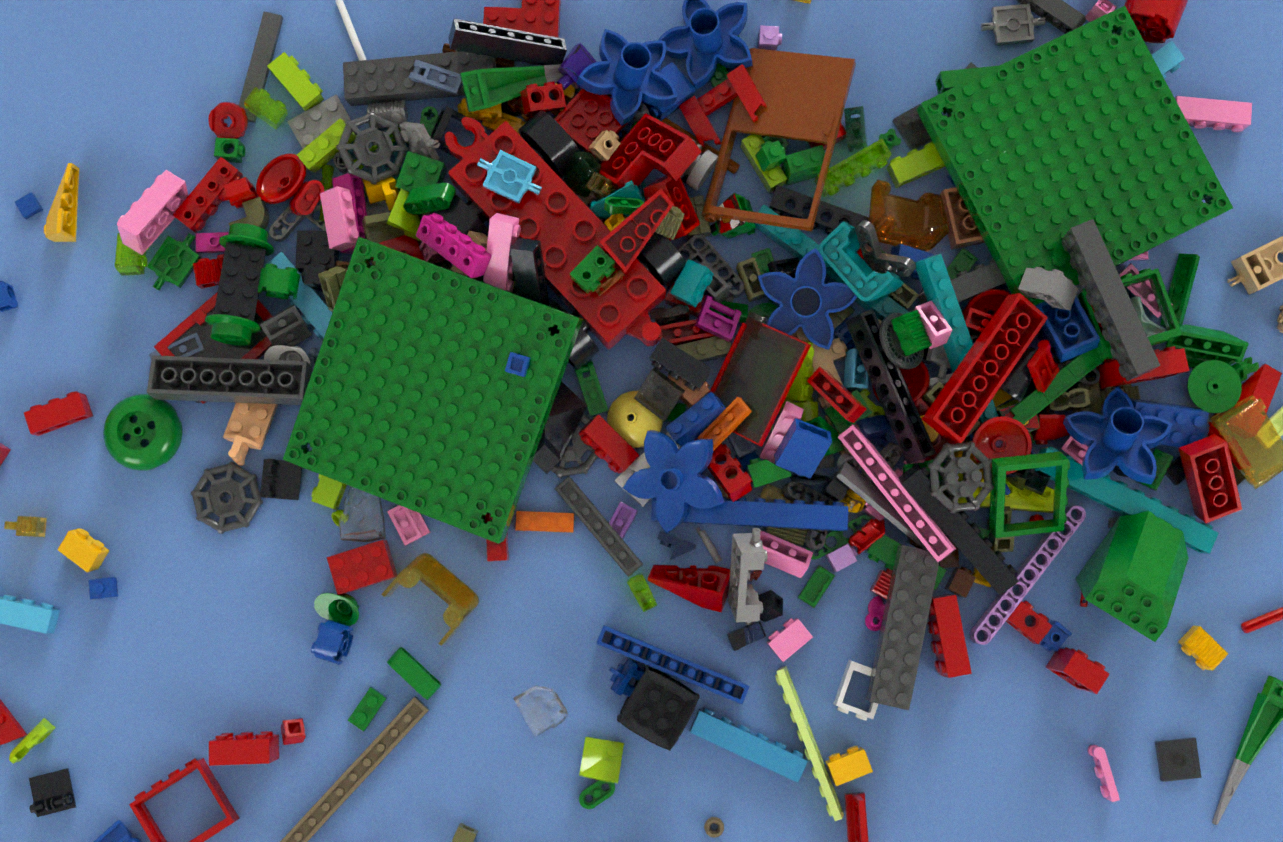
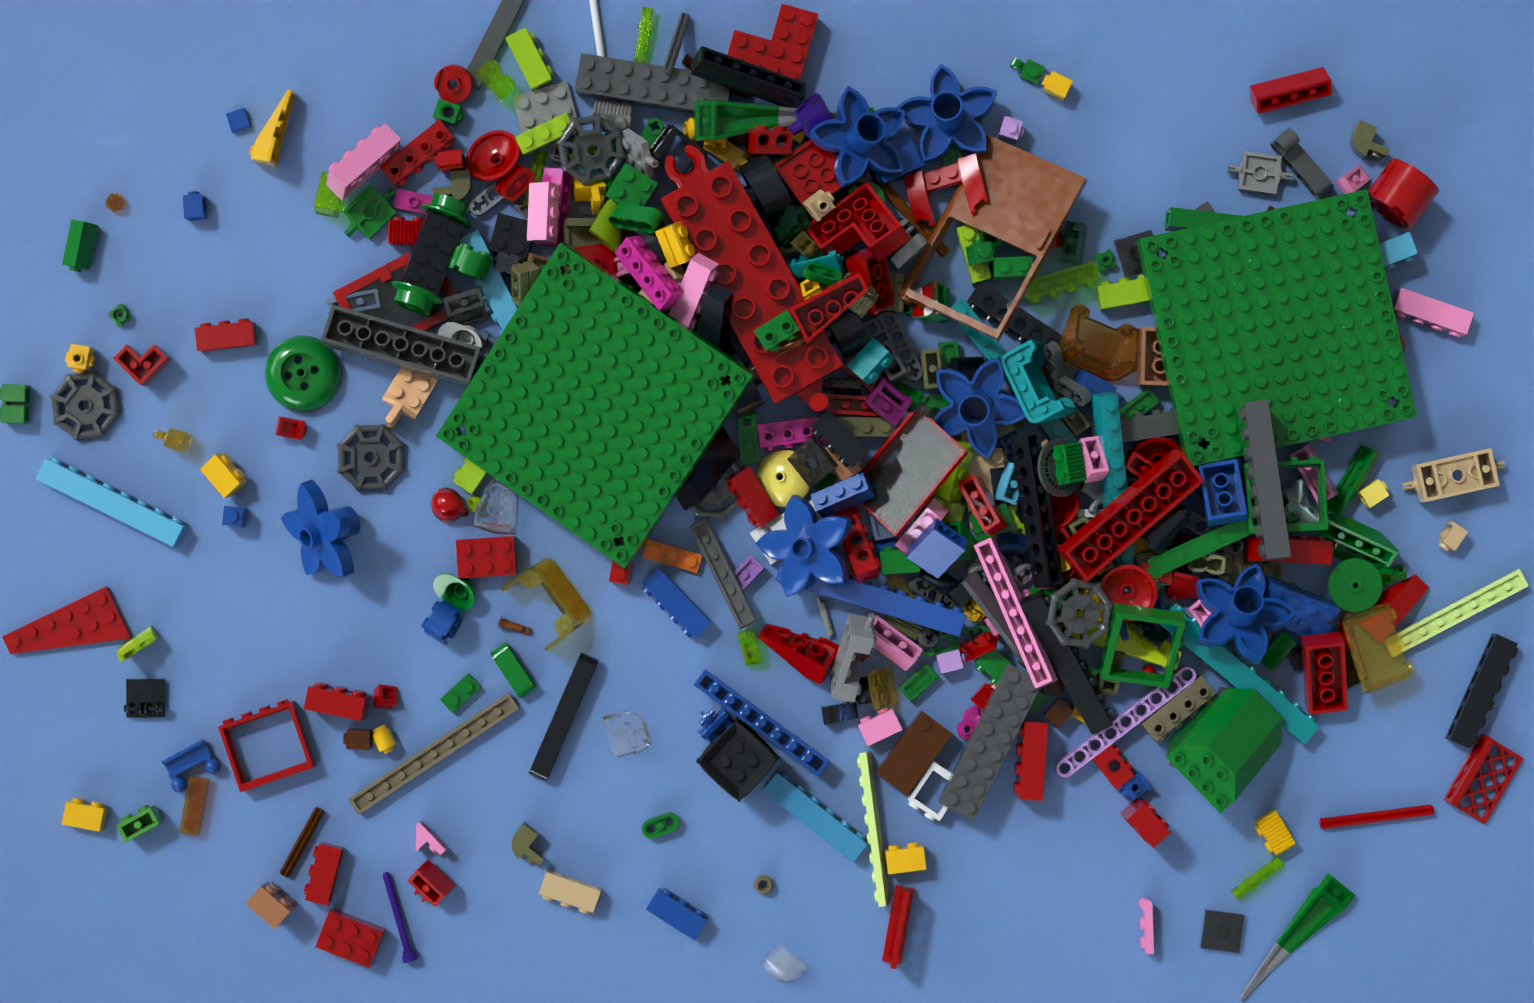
camera: 15 degrees right, 5 degrees up
(140, 488) = (290, 428): none -> red bracket
(190, 580) = (322, 531): none -> blue plant
(274, 781) = (358, 739): none -> reddish brown brick
(280, 480) = (426, 453): black hinge -> none
(300, 774) = (383, 739): none -> yellow brick
(313, 526) = (448, 505): none -> red piece
(400, 31) = (643, 34): none -> clear neon green pin
(404, 629) = (513, 626): none -> dark orange piece
(408, 524) = (540, 526): bright pink plate -> none
(431, 32) = (676, 43): none -> dark grey axle
(436, 77) = (670, 95): sand blue plate -> none
(472, 210) = (675, 244): none -> yellow brick
(475, 707) = (563, 716): none -> black beam
(509, 176) = (719, 220): medium azure plate -> none
(517, 364) = (683, 404): blue tile -> none
(559, 566) = (676, 602): none -> blue brick
(601, 760) = (672, 795): lime plate -> none
(626, 375) = (786, 433): none -> dark pink brick
(681, 546) = (797, 613): dark blue slope -> none
(726, 422) = (870, 505): orange plate -> none
(782, 600) = (880, 695): none -> clear yellow plate
(829, 657) = (913, 752): none -> reddish brown brick
(1042, 366) = (1183, 529): red plate -> none
(1048, 286) = (1212, 452): light grey brick -> none
(1076, 550) = (1178, 708): none -> dark tan brick
(1193, 704) = (1258, 877): none -> clear neon green pin
(1204, 296) = (1373, 493): none -> light yellow brick

